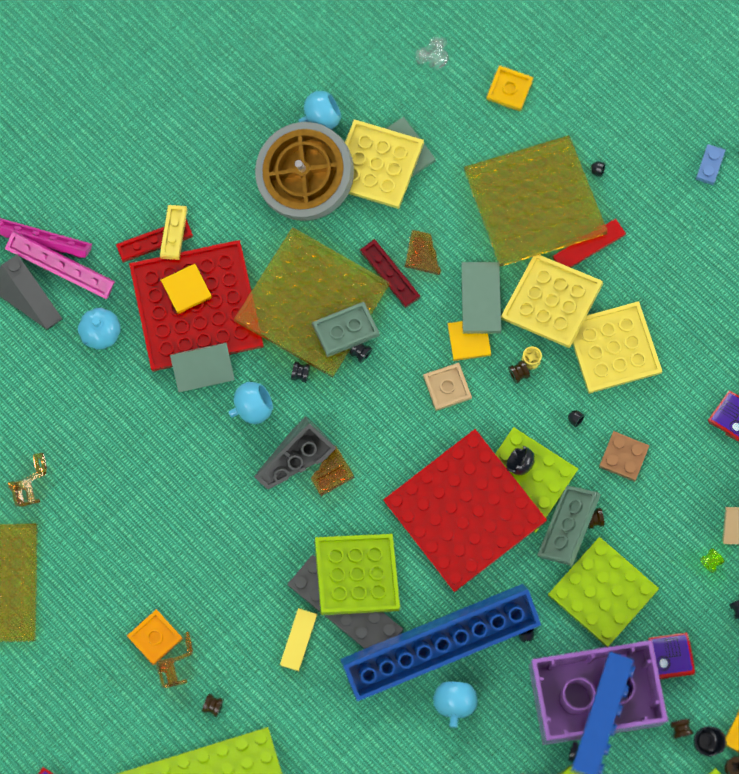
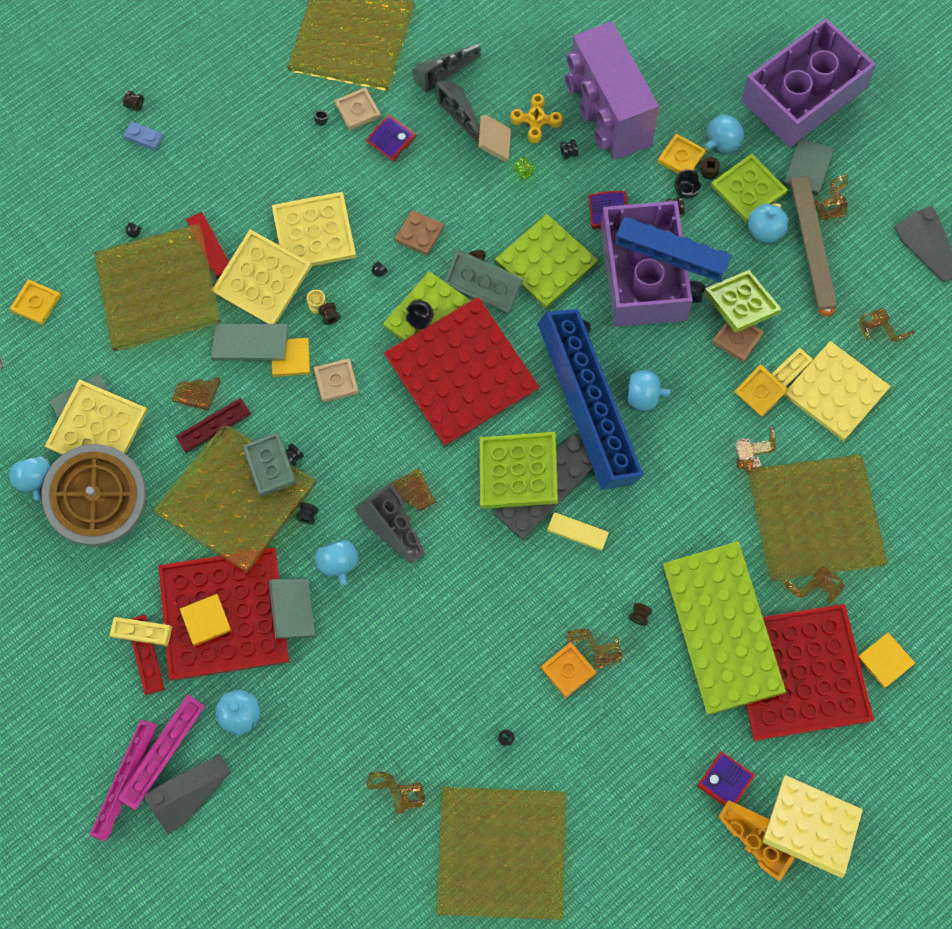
camera: 85 degrees left, 5 degrees down
(82, 577) = (503, 741): none -> black hinge

